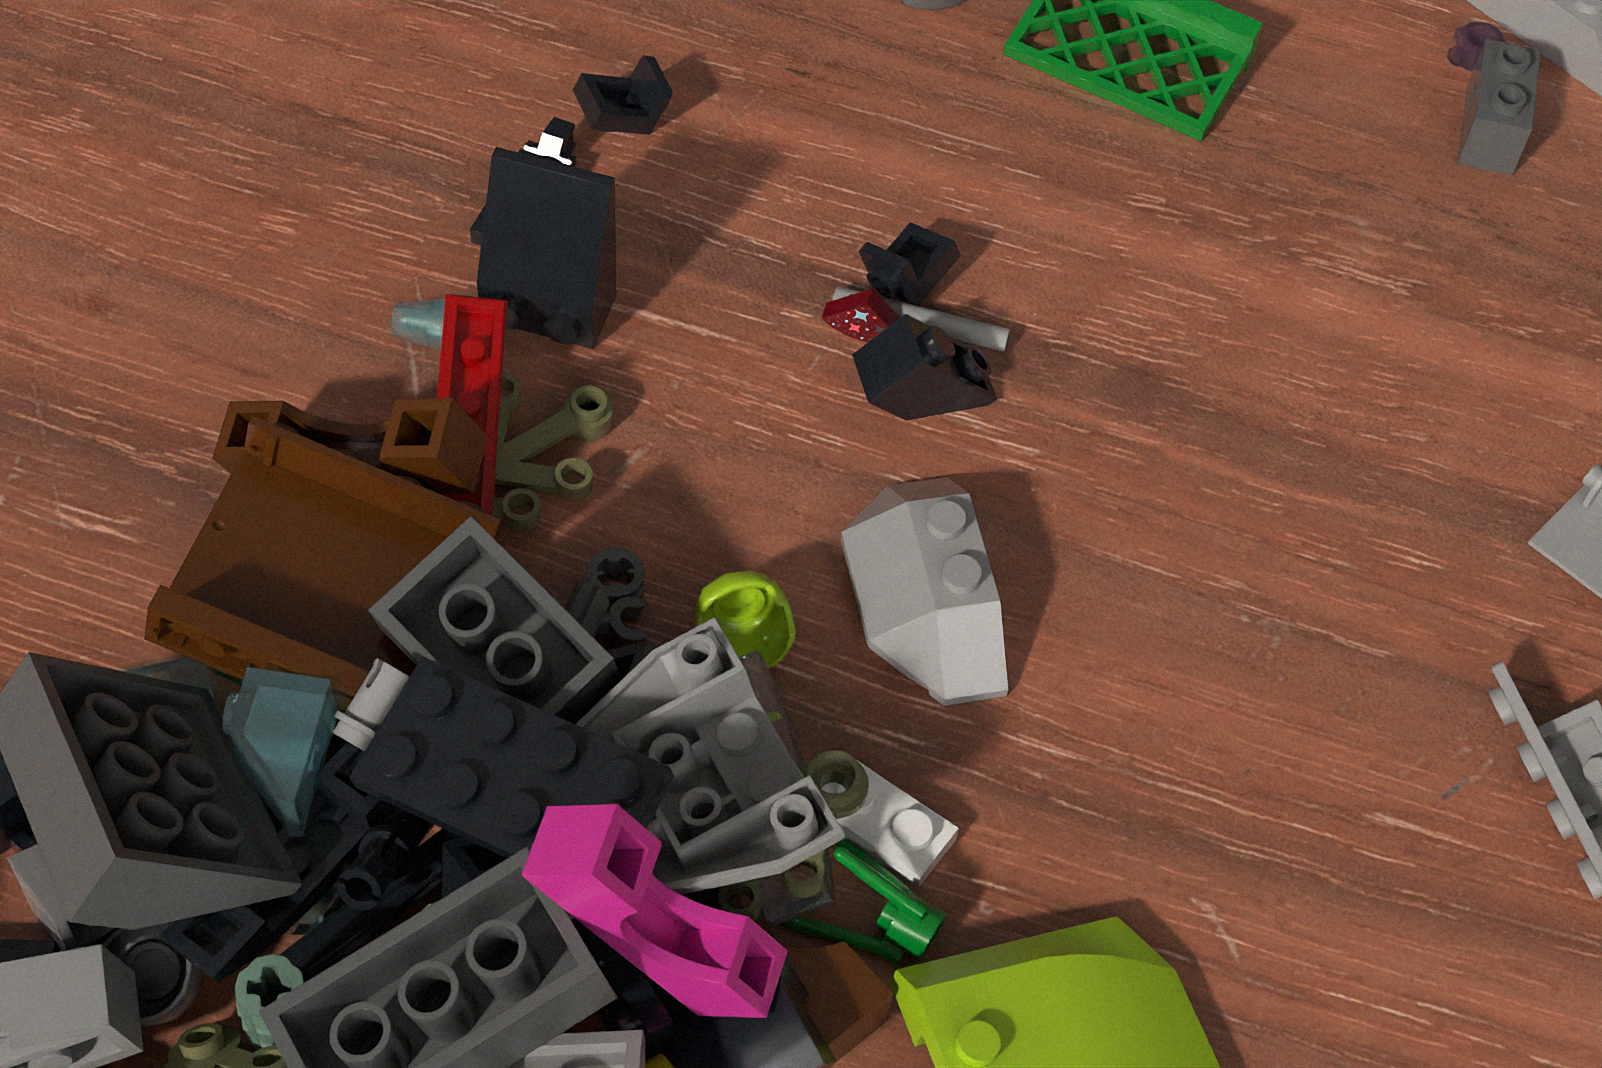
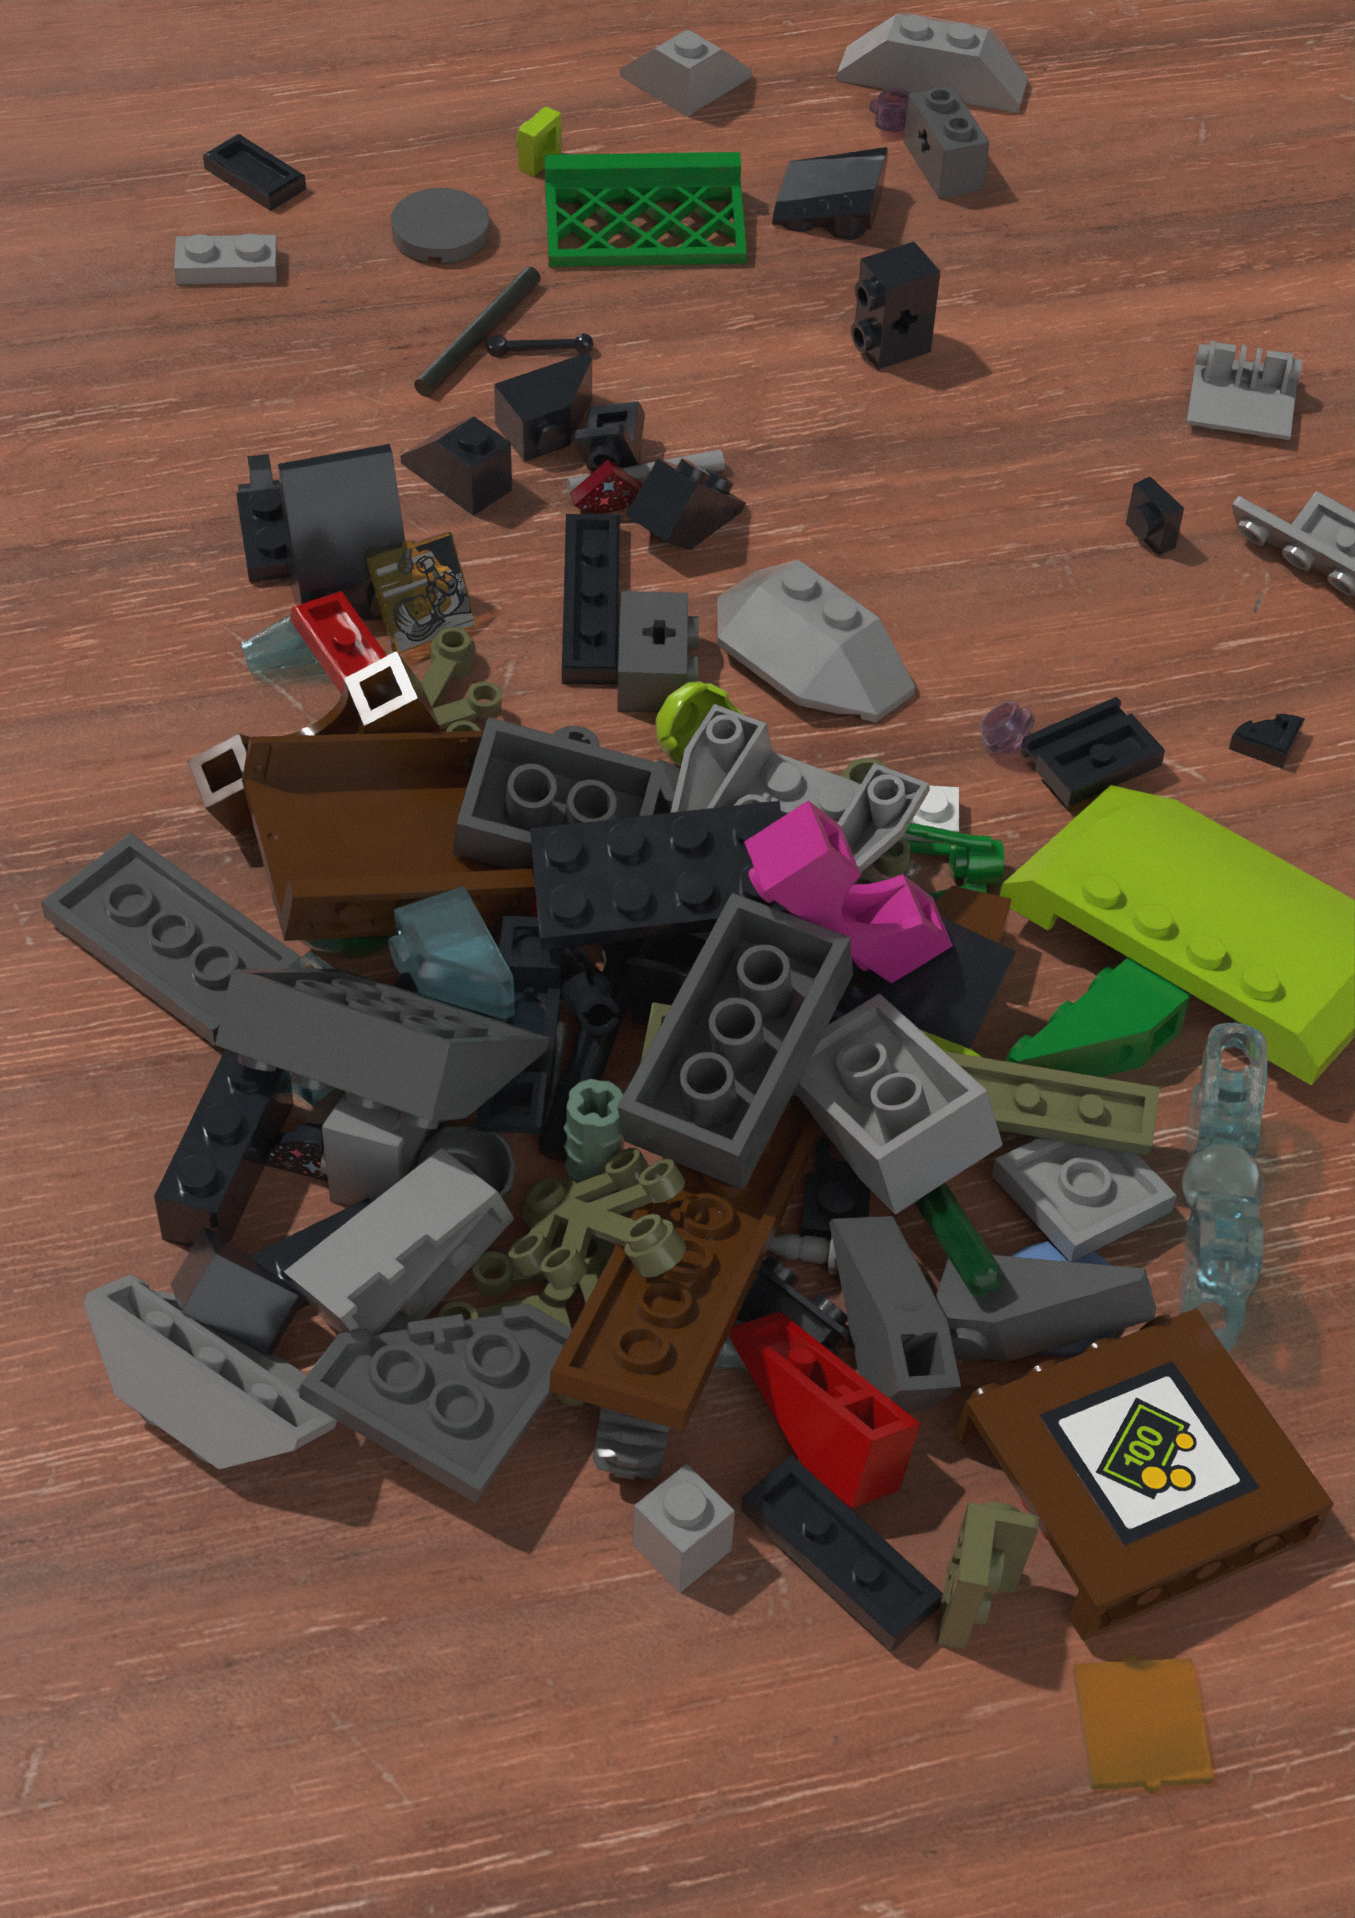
camera: 30 degrees left, 5 degrees down
(99, 555) = (163, 931): none -> dark grey plate
(370, 704) = (512, 888): light grey pin -> none
(592, 337) = (421, 591): none -> piece
(622, 102) = (296, 421): black bracket -> none
(749, 225) = (464, 463): none -> black slope
(763, 424) = (591, 599): none -> black tile
(770, 512) = (654, 649): none -> dark grey brick
(875, 200) = (544, 406): none -> black slope
(877, 90) = (477, 332): none -> pearl dark grey bar
(888, 114) = (499, 345): none -> black hinge
(1059, 789) = (1006, 727): none -> plate
(1130, 866) = (1092, 751): none -> black plate
(1293, 262) = (895, 305): none -> black brick
(1340, 955) = (1268, 739): none -> black tile
(1342, 109) = (832, 193): none -> black slope
(1401, 632) = (1154, 515): none -> black plate

